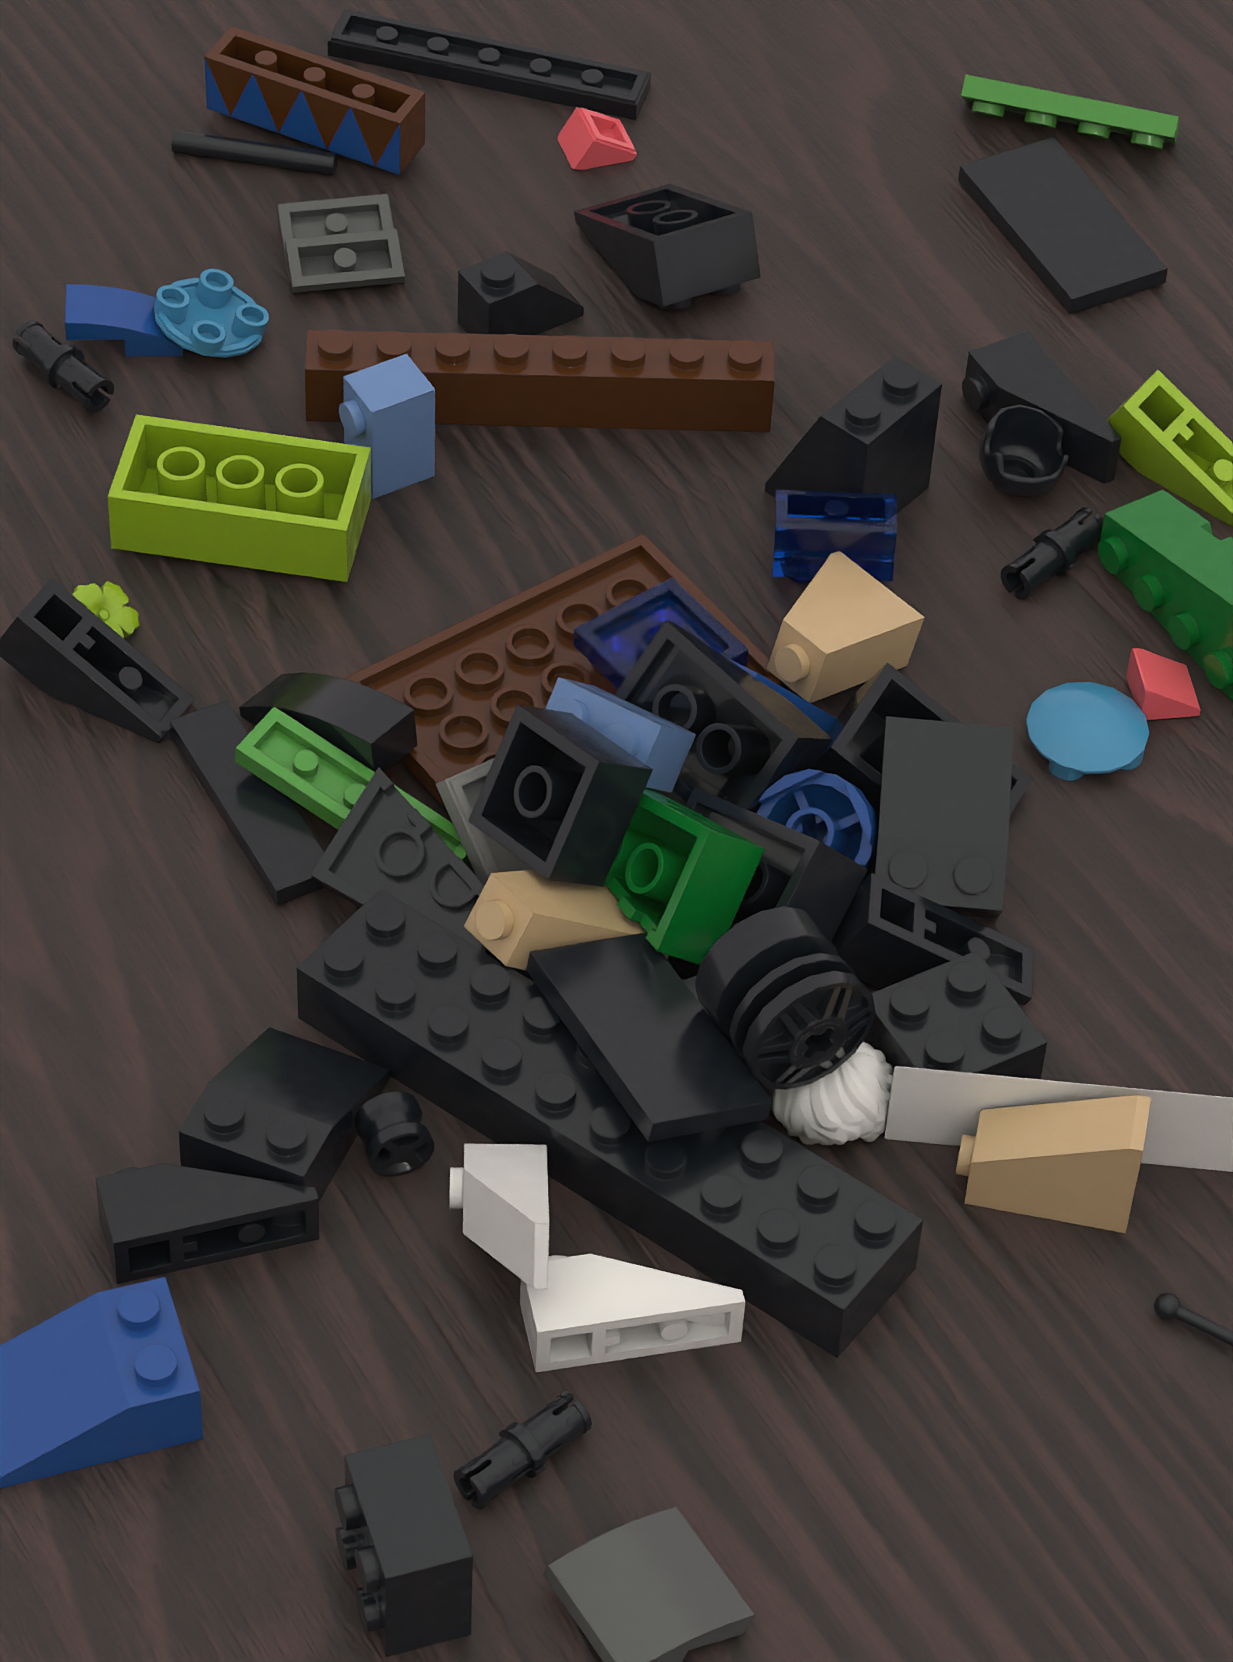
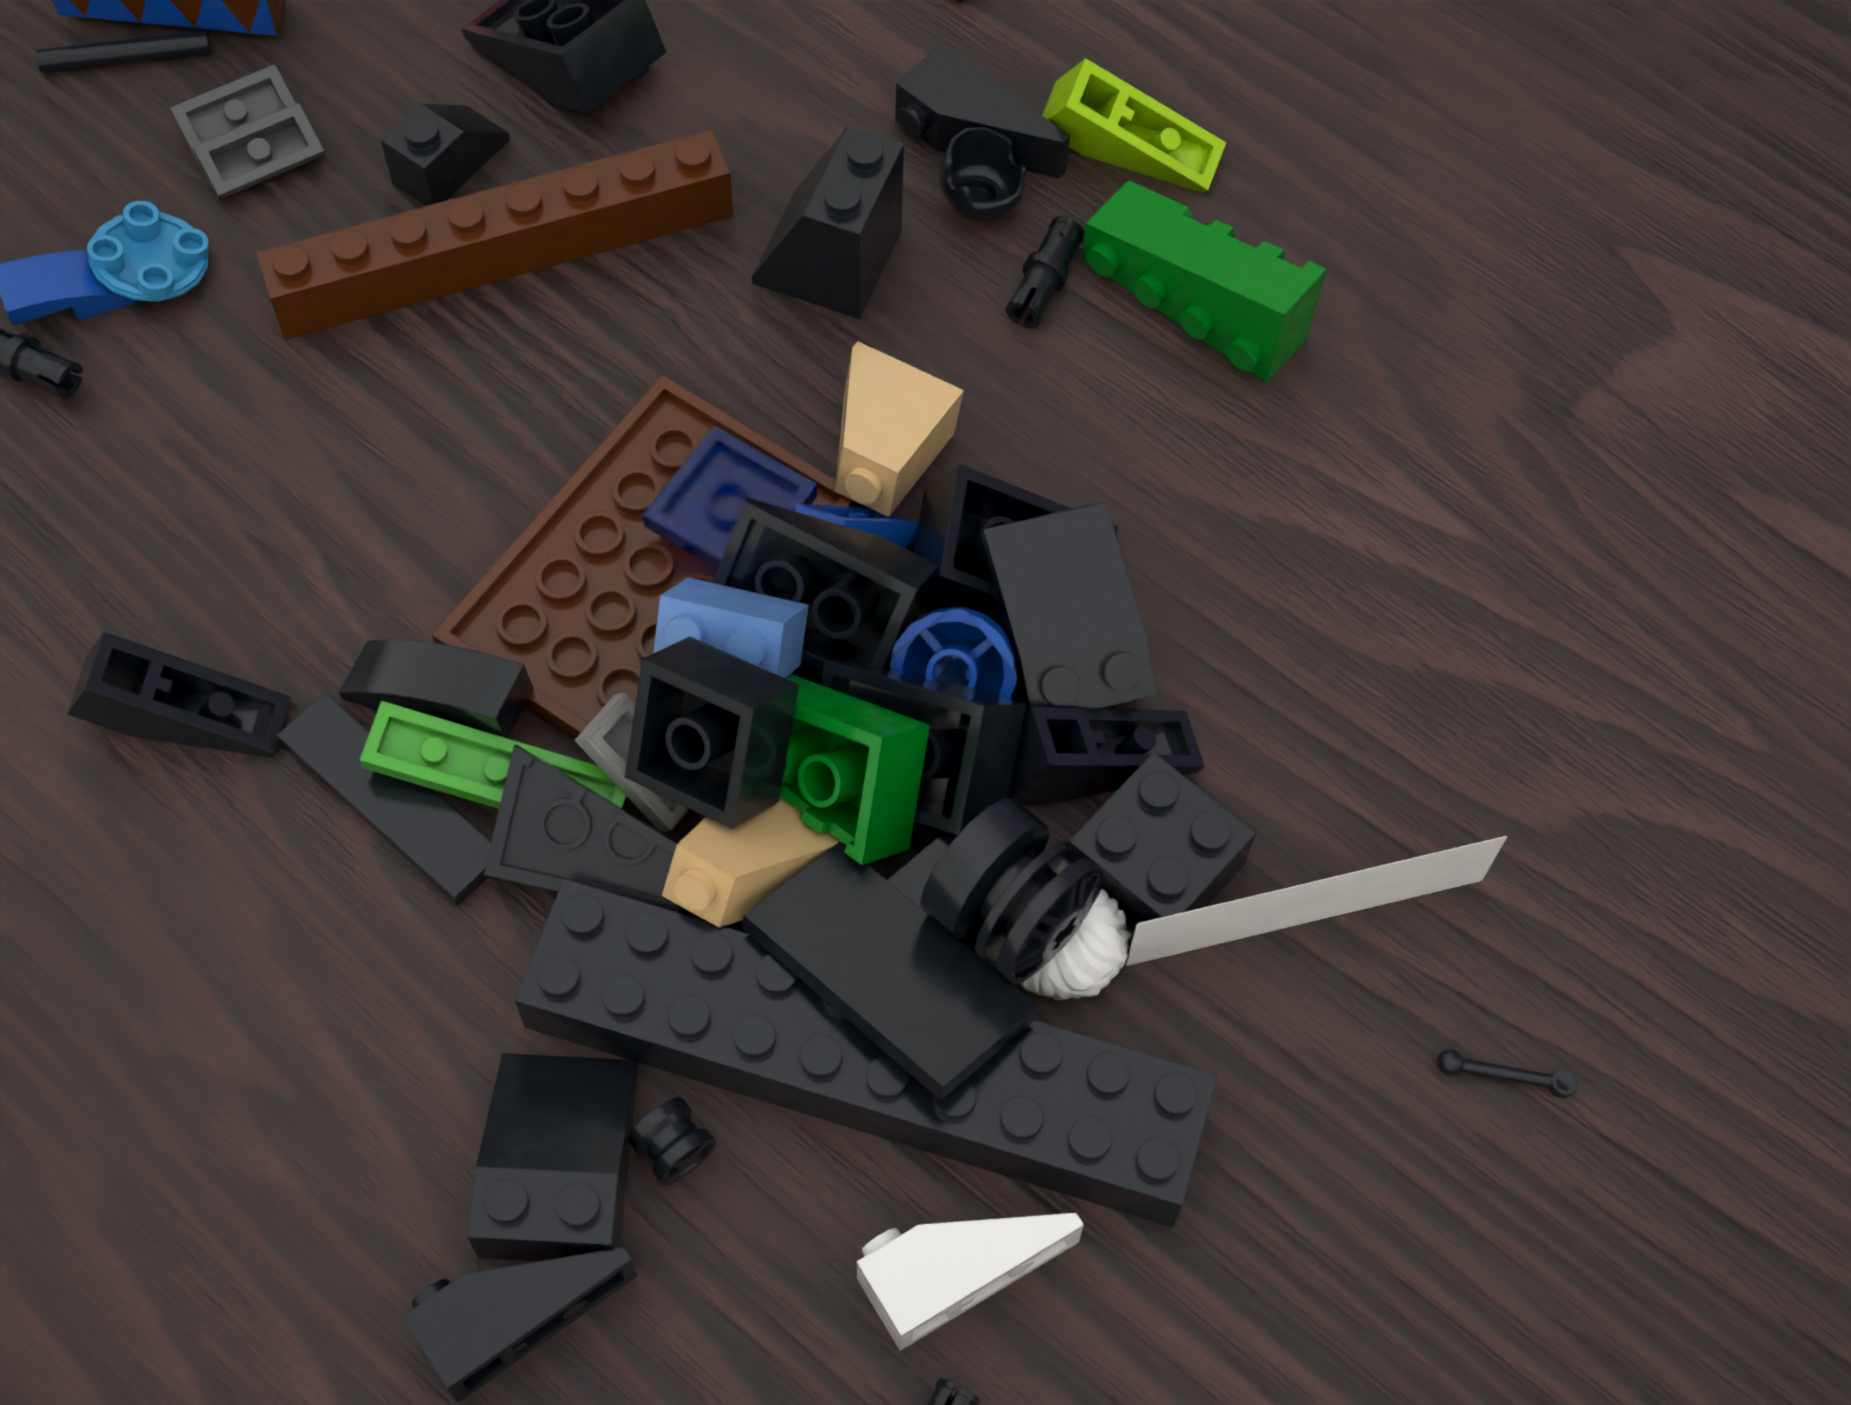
camera: 20 degrees left, 15 degrees up
(109, 606) = (165, 629): lime plant -> none
(240, 498) = (255, 461): lime brick -> none
(395, 416) = (375, 335): medium blue brick -> none
(506, 1205) = (821, 1201): white slope -> none
(824, 522) = (830, 318): clear blue brick -> none
(1058, 1160) = (1308, 950): tan slope -> none
(1087, 730) = (1145, 454): dark azure dish -> none
(1161, 686) = (1194, 387): coral slope -> none

